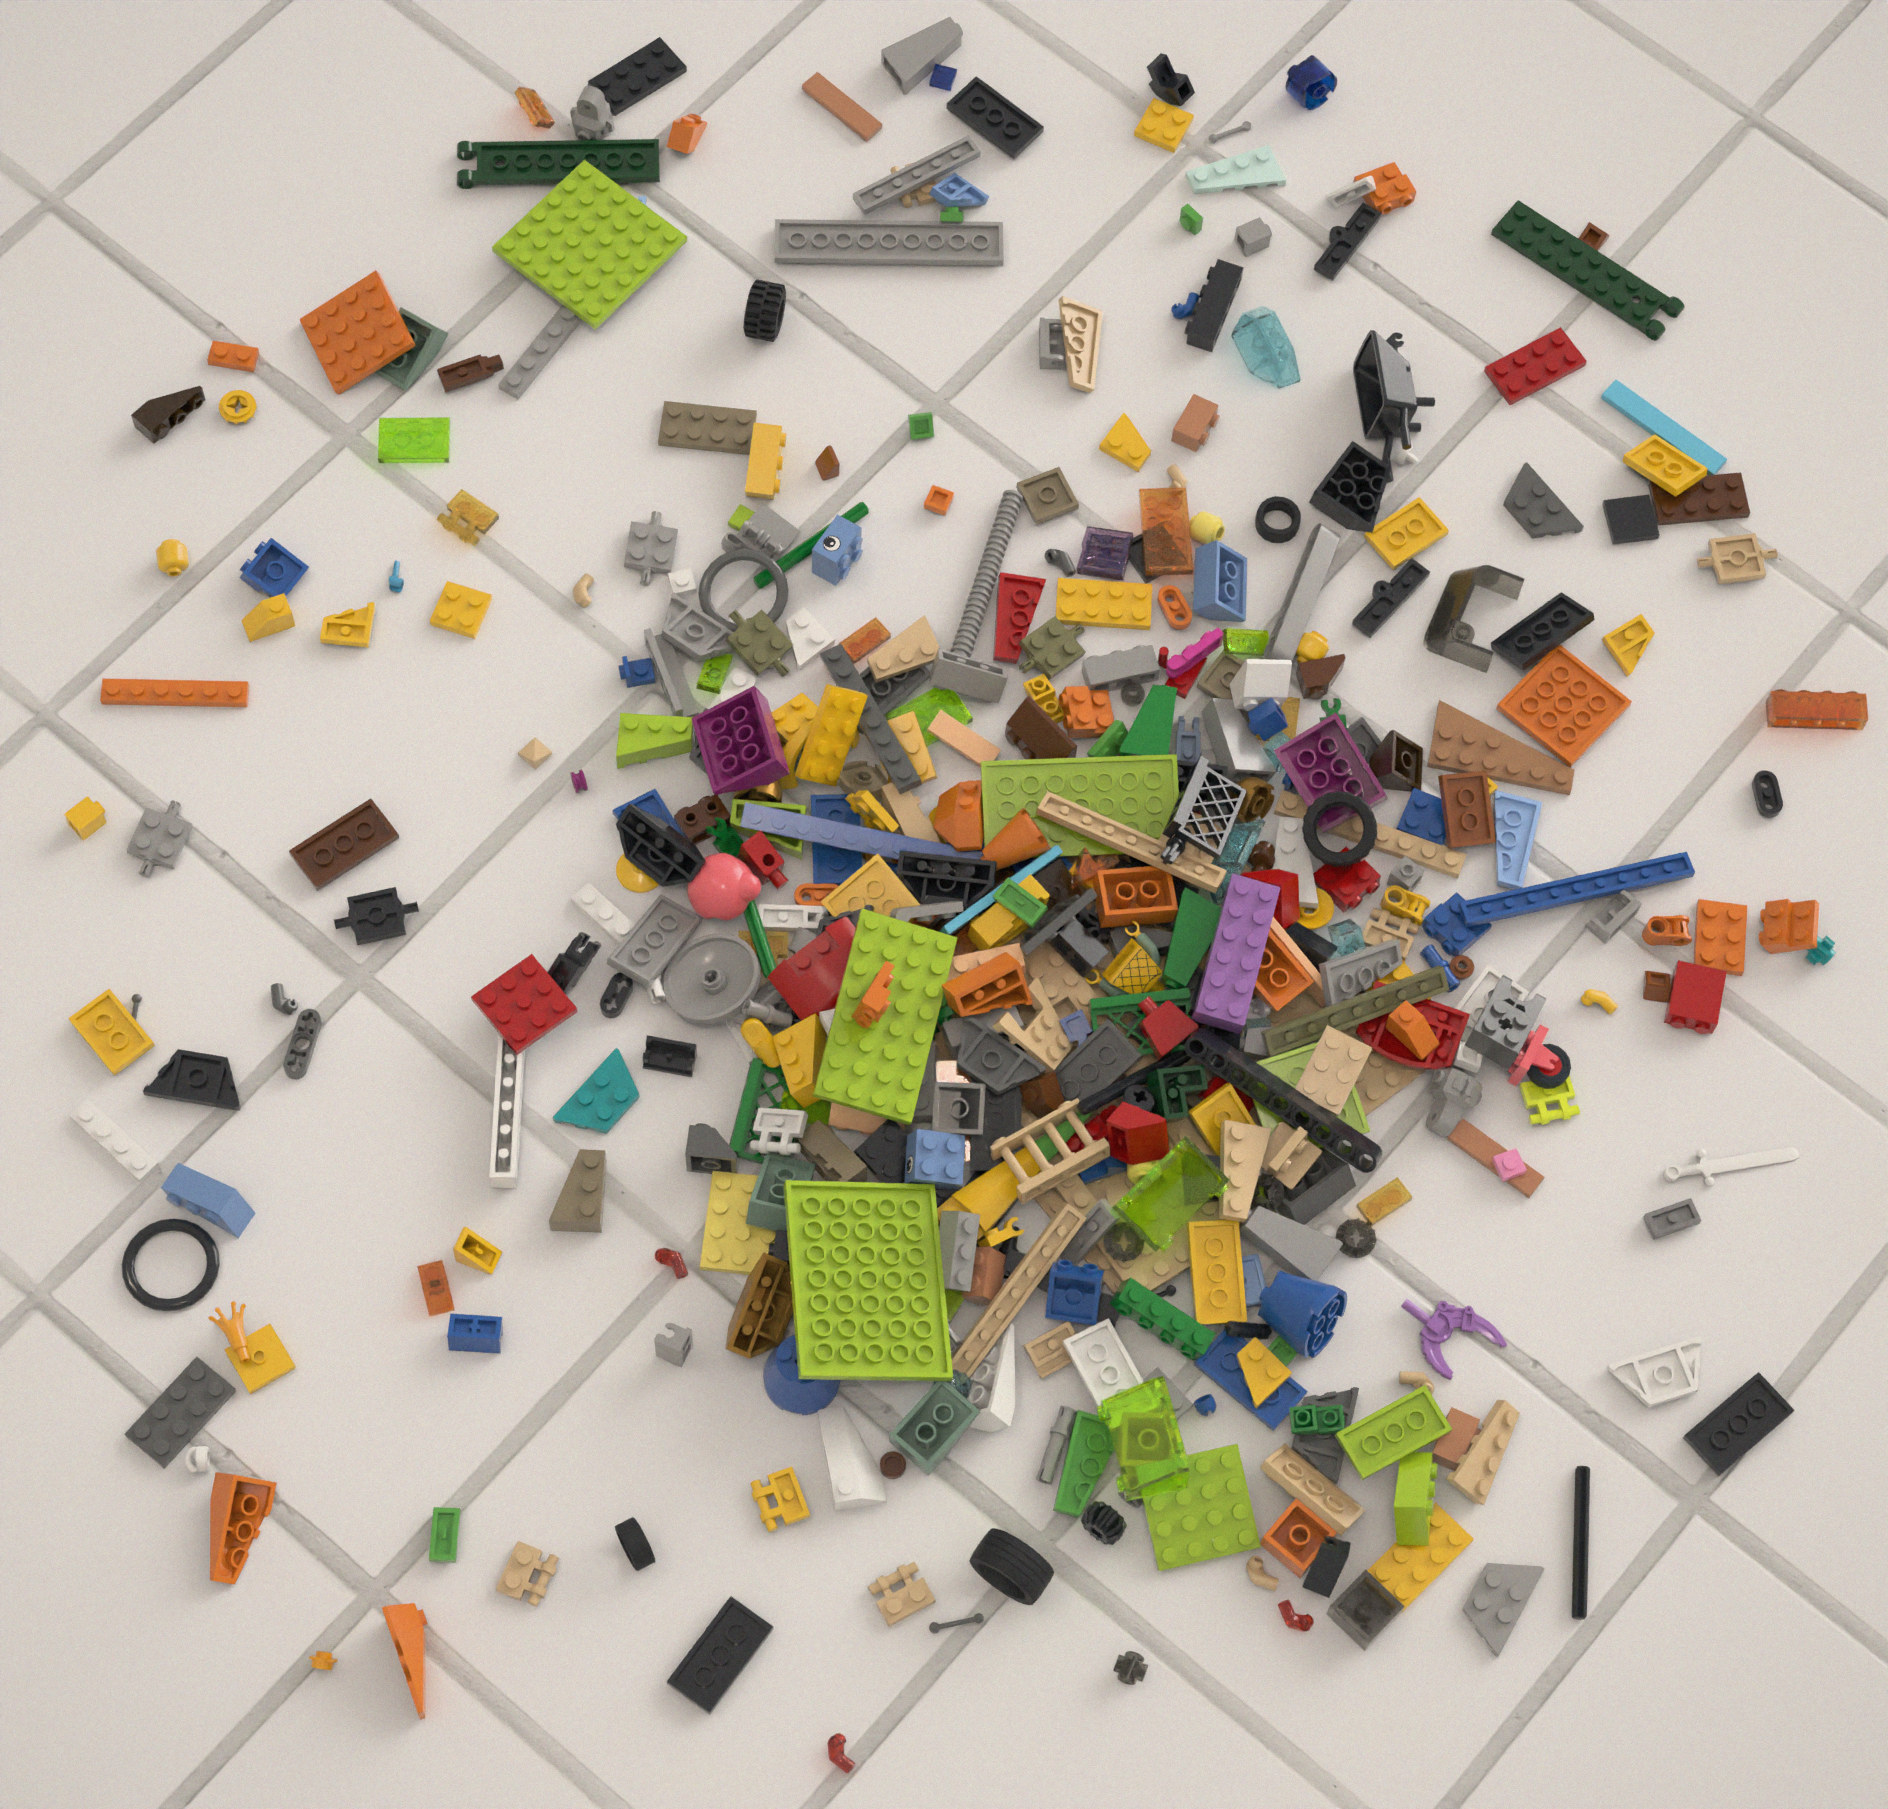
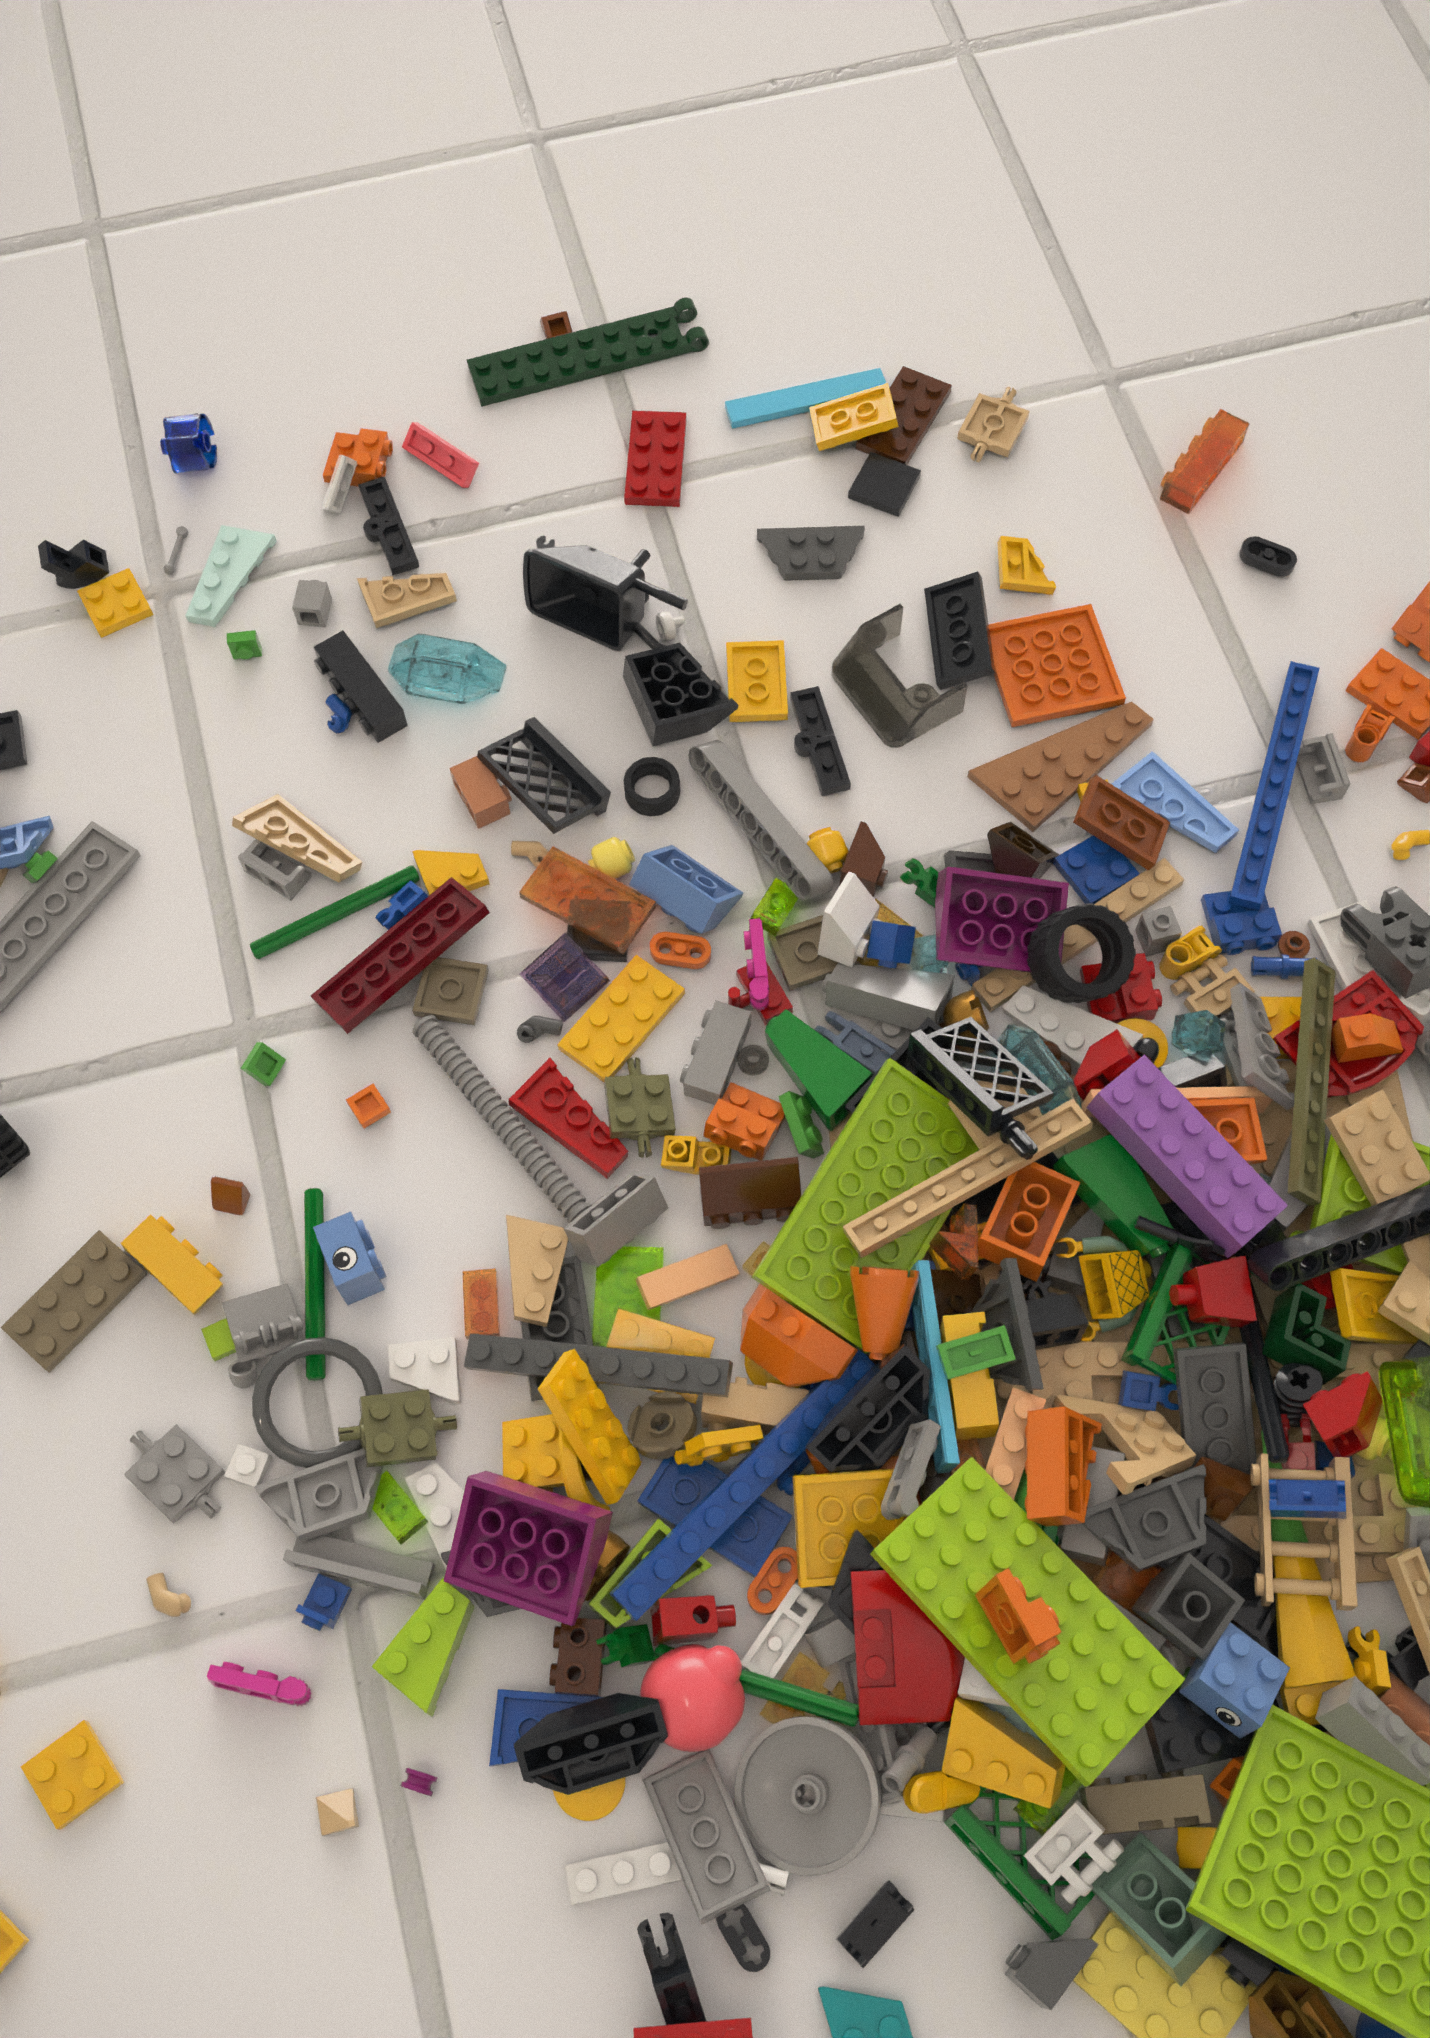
camera: 50 degrees left, 0 degrees up
(571, 669) = (261, 1685): none -> dark pink hinge
(1047, 451) = (399, 954): none -> dark red plate
(1050, 397) = (333, 912): none -> green axle
(1065, 1133) = (1307, 1498): none -> blue hinge
(1084, 432) = (401, 904): none -> blue plate
(1181, 980) = (1198, 1246): none -> black piece
(1248, 461) = (561, 766): none -> black fence
(1297, 284) = (399, 599): none -> tan wing
(1308, 910) = (1148, 1047): none -> black hinge
(1427, 235) = (440, 455): none -> coral plate

